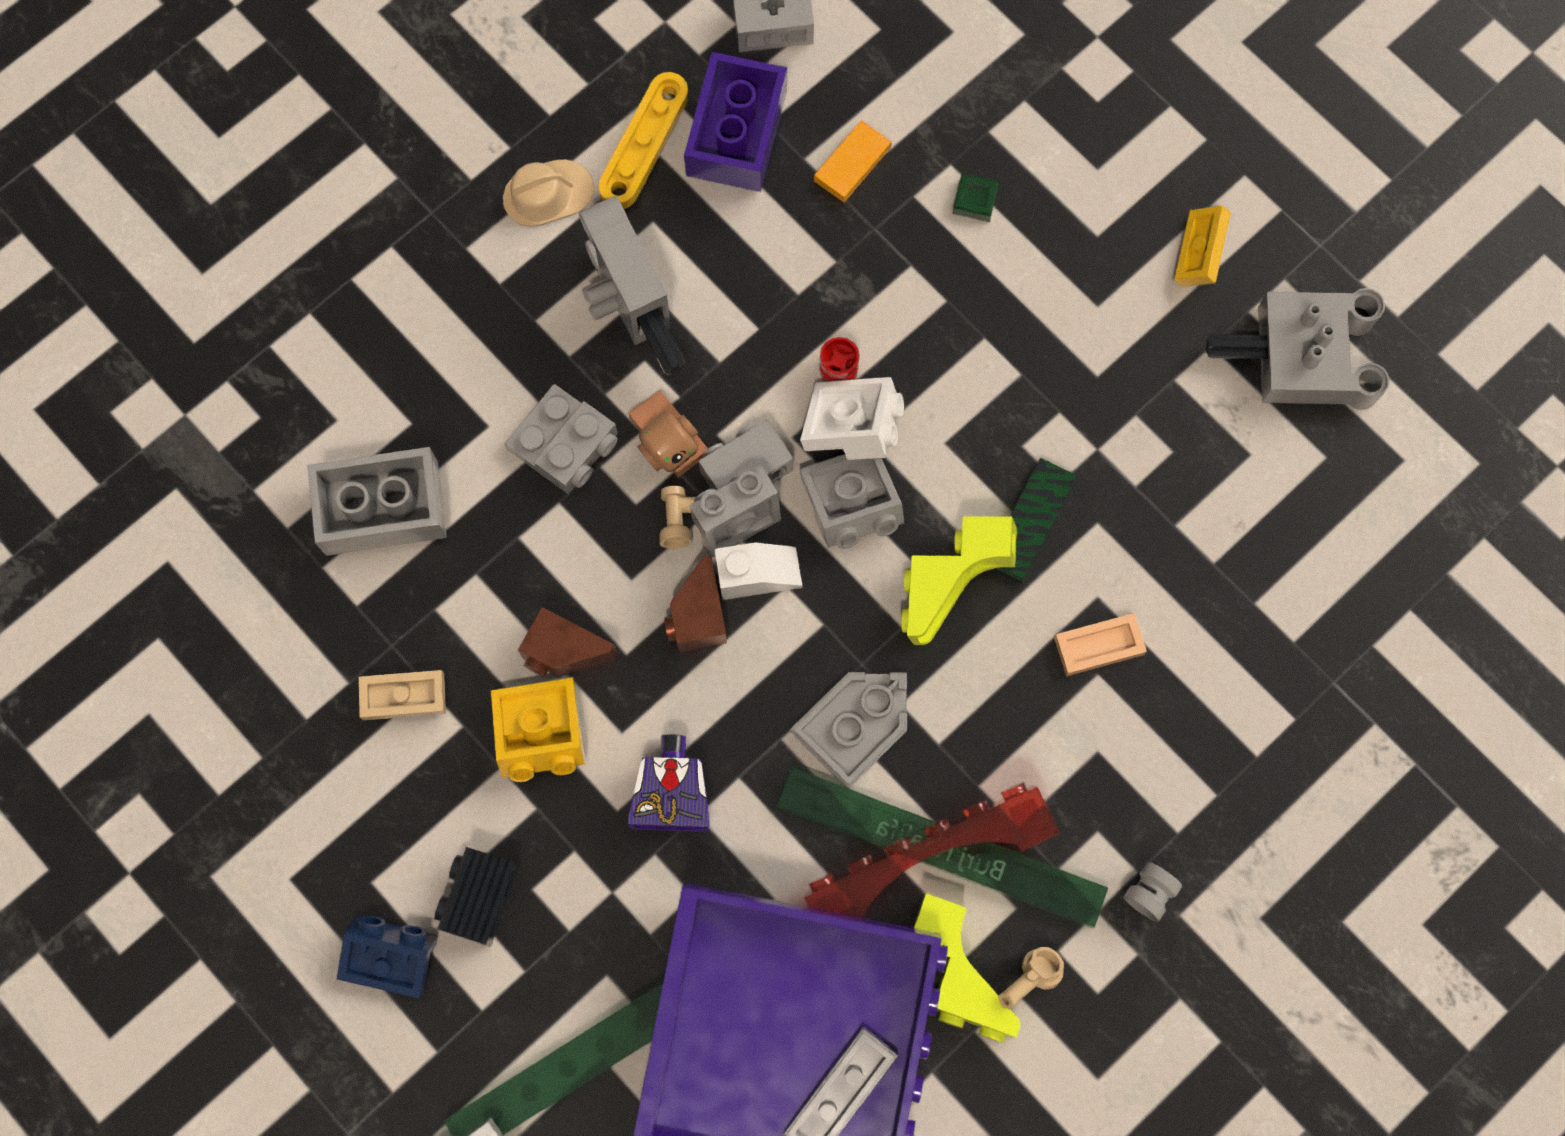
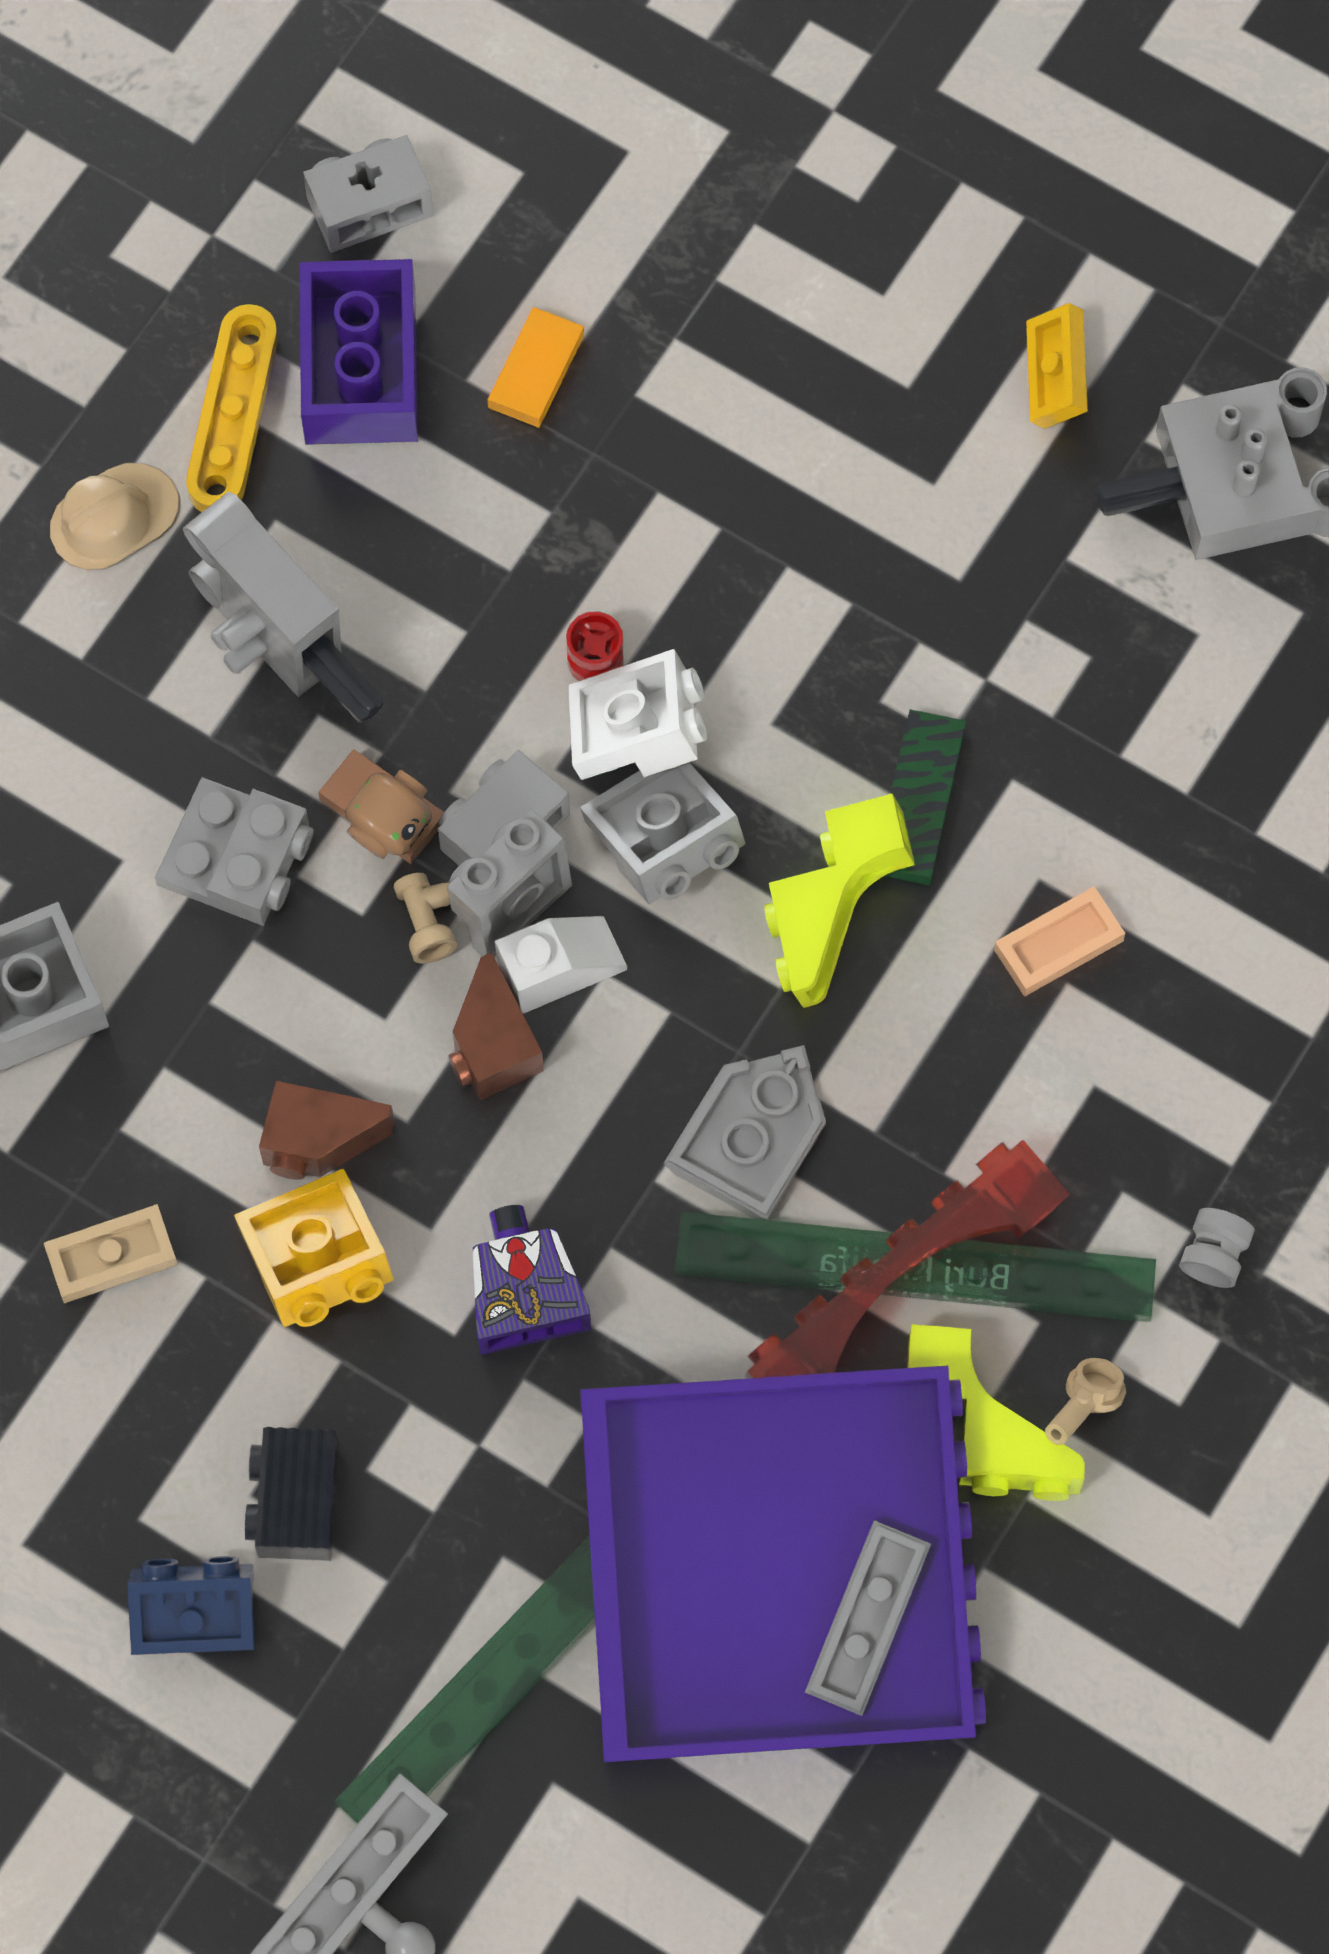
camera: 15 degrees left, 5 degrees down
(975, 198) = (723, 376): dark green tile -> none

